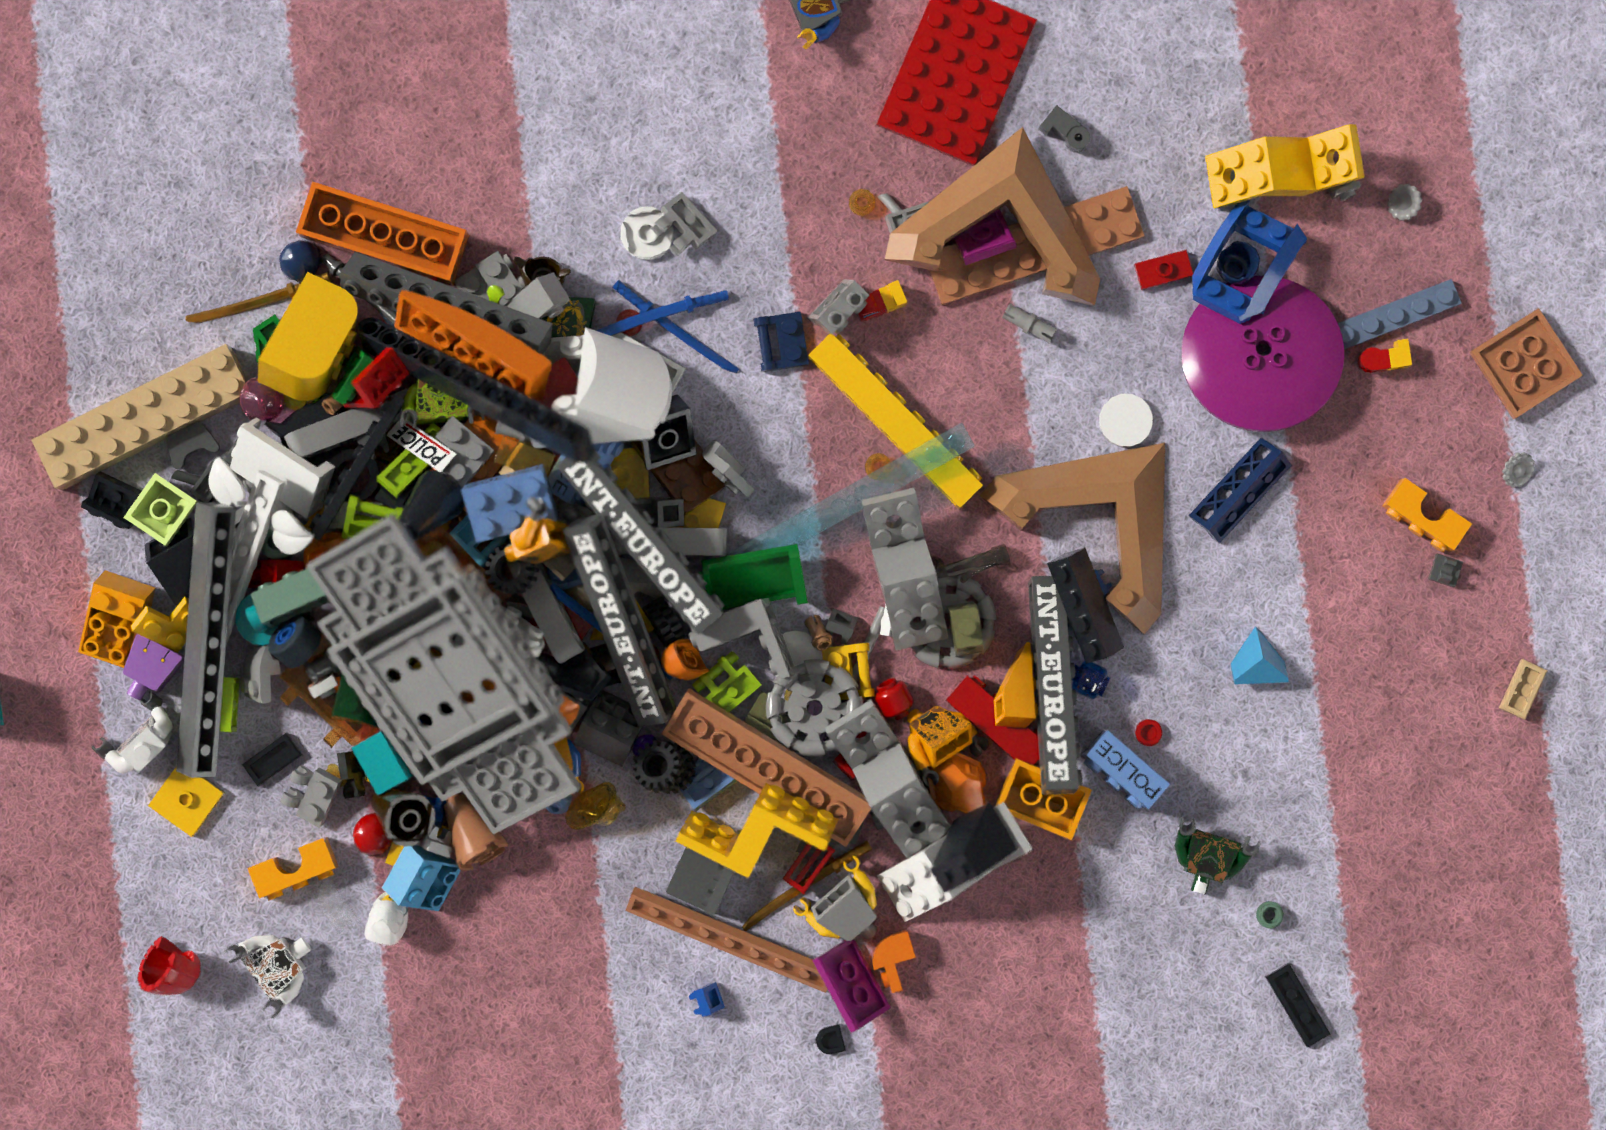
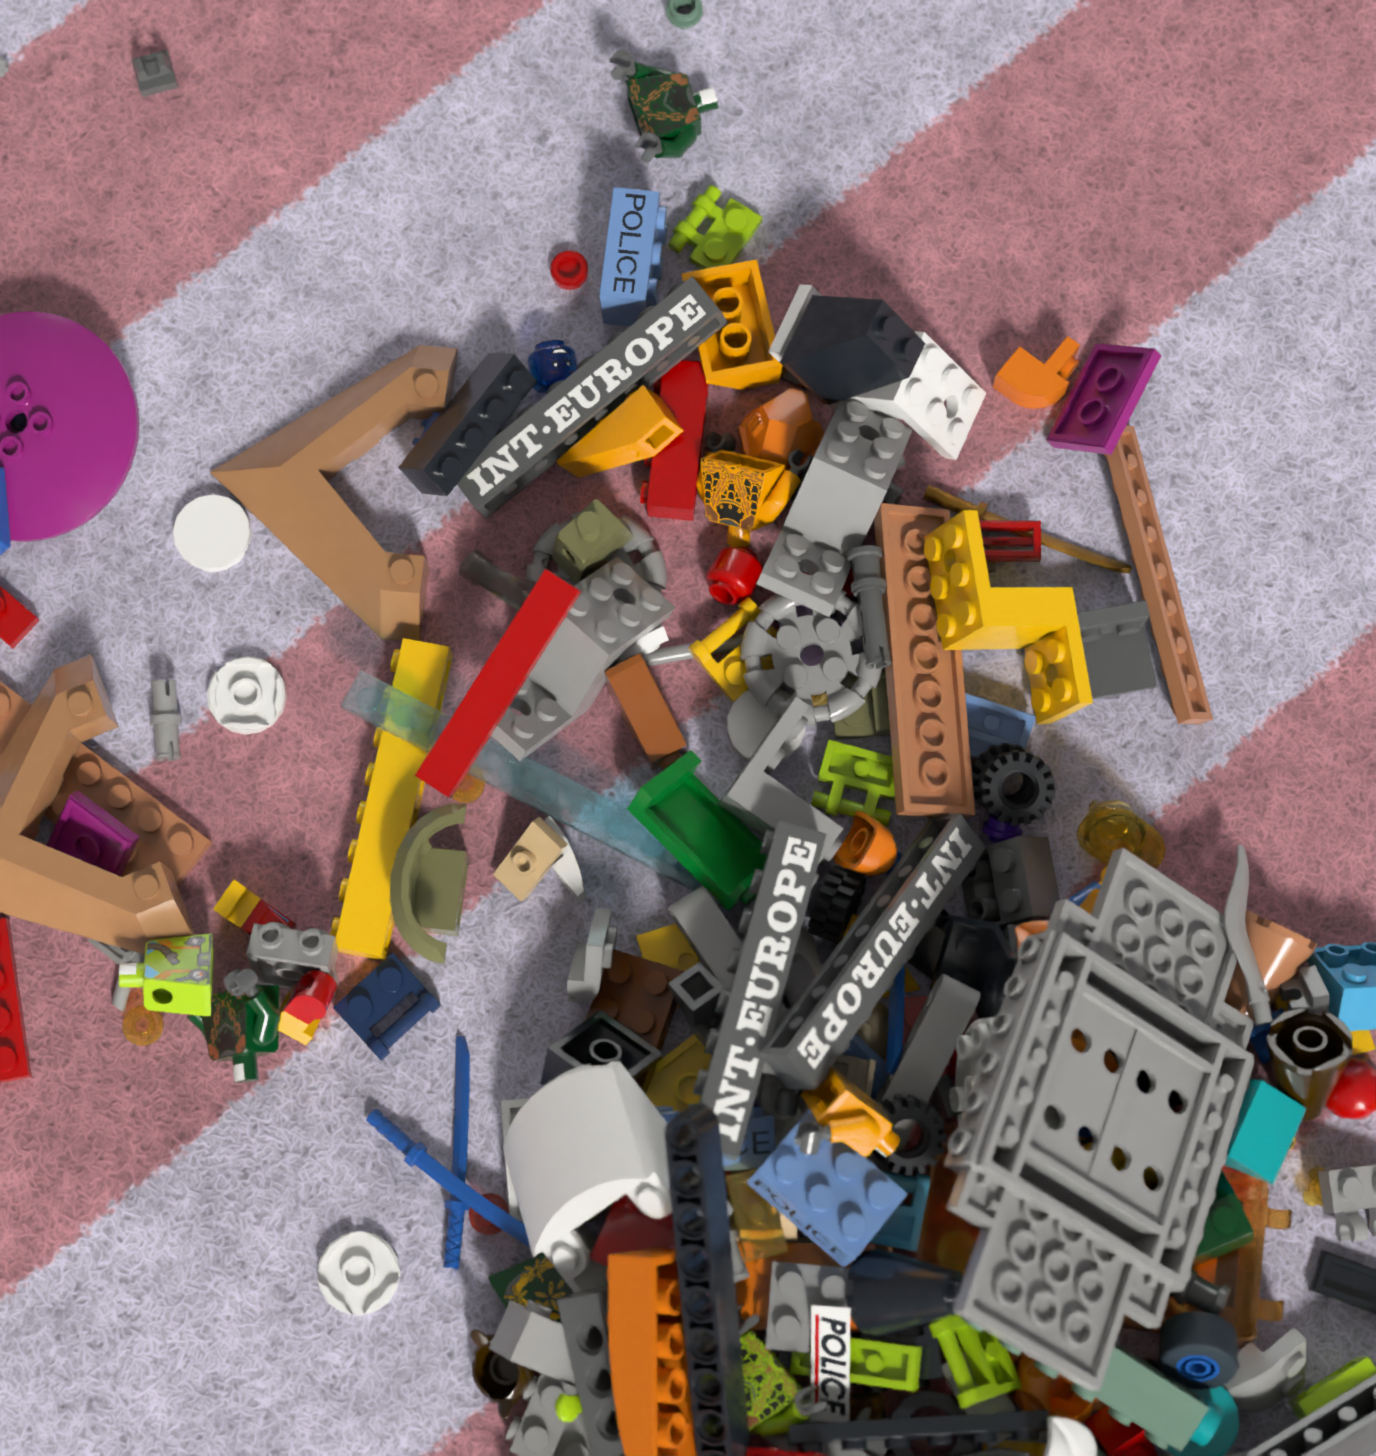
camera: 120 degrees left, 10 degrees down
(324, 686) = (1224, 1271): white plate -> none
(353, 772) = (1299, 1167): pearl dark grey plate -> none
(490, 825) = (1237, 935): none -> light grey piece
(689, 222) = (309, 1227): light grey plate -> none
(708, 999) = (1243, 550): blue tile -> none
(787, 490) = (567, 867): none -> white slope
(807, 472) = (530, 859): none -> tan plate
(808, 295) = (306, 1005): none -> red leg
(820, 637) = (718, 714): medium nougat pin -> none
(825, 252) = (242, 1023): none -> dark green torso
(825, 762) = (868, 588): none -> dark grey pin
(827, 405) = (429, 884): none -> olive piece
(830, 1040) = (1182, 386): black tile -> none
(841, 624) = (688, 696): dark grey tile -> none
(844, 592) = (645, 712): none -> dark orange slope
(845, 908) = (1024, 463): light grey torso -> none
(872, 235) = (174, 975): none -> lime torso
(910, 515) = (498, 683): none -> red tile
(1006, 378) = (253, 707): none -> white tile
(1106, 838) = (724, 239): none -> lime plate
(1245, 492) = (209, 337): dark blue fence -> none
(1258, 662) = (403, 202): dark azure slope -> none
(1406, 505) = (104, 159): light orange arch -> none

